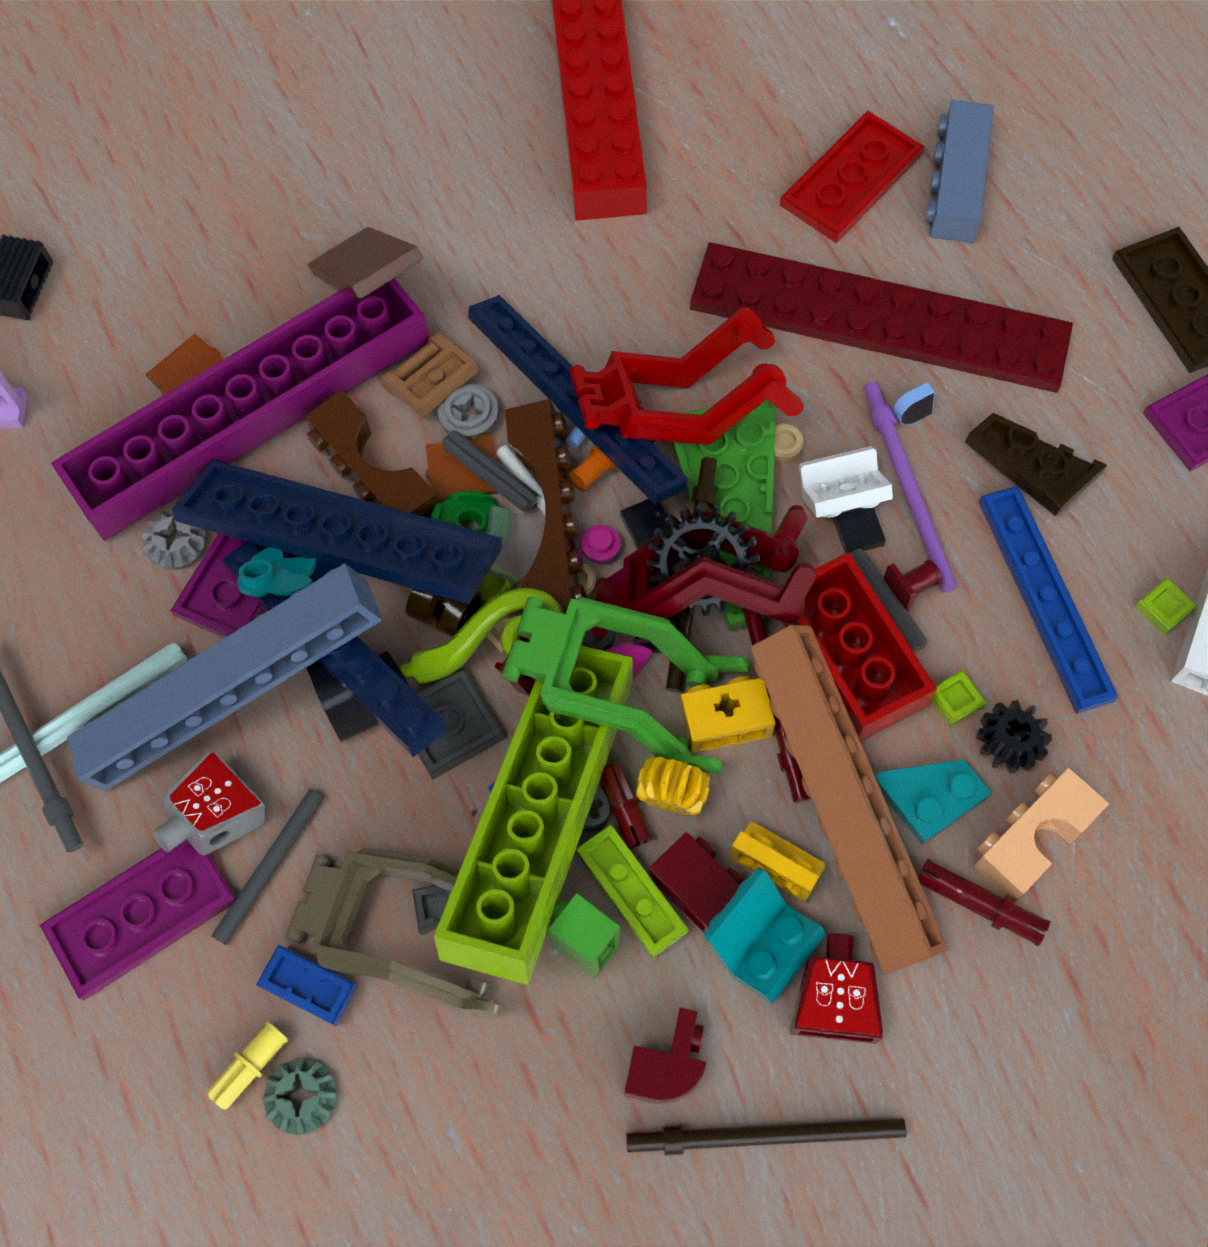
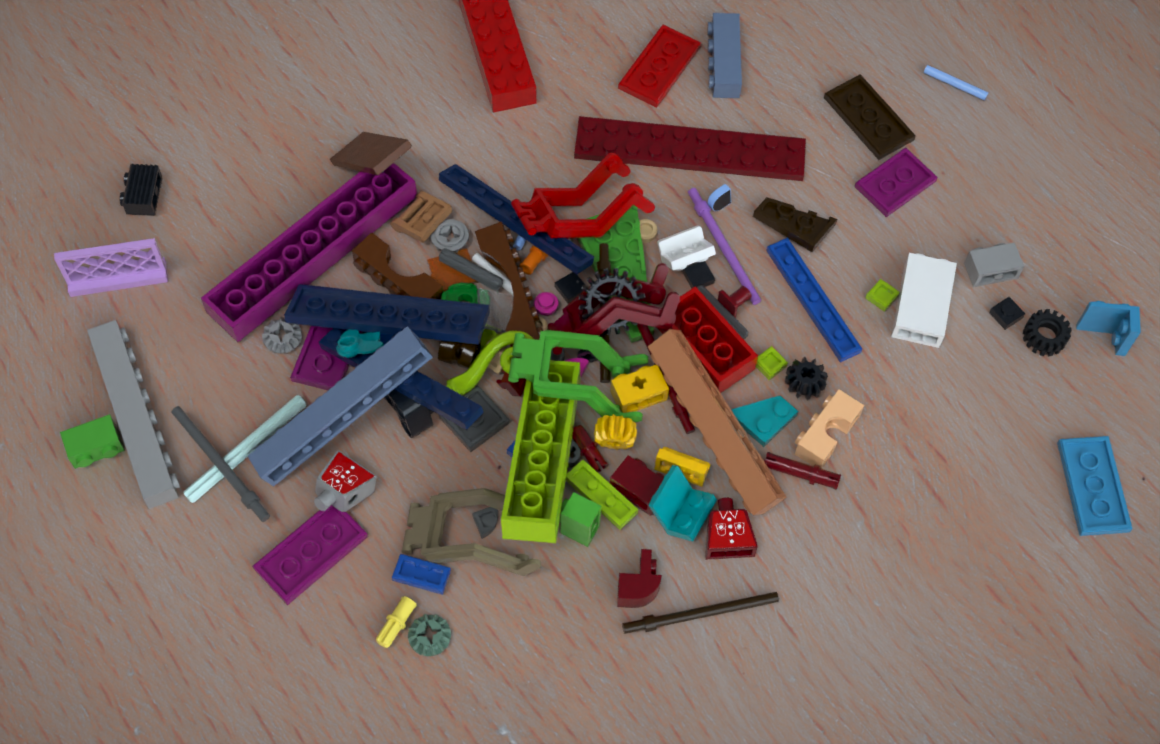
camera: 15 degrees left, 5 degrees down
(183, 364) = (264, 231): clear orange piece -> none
(267, 867) = (382, 514): dark grey bar -> none

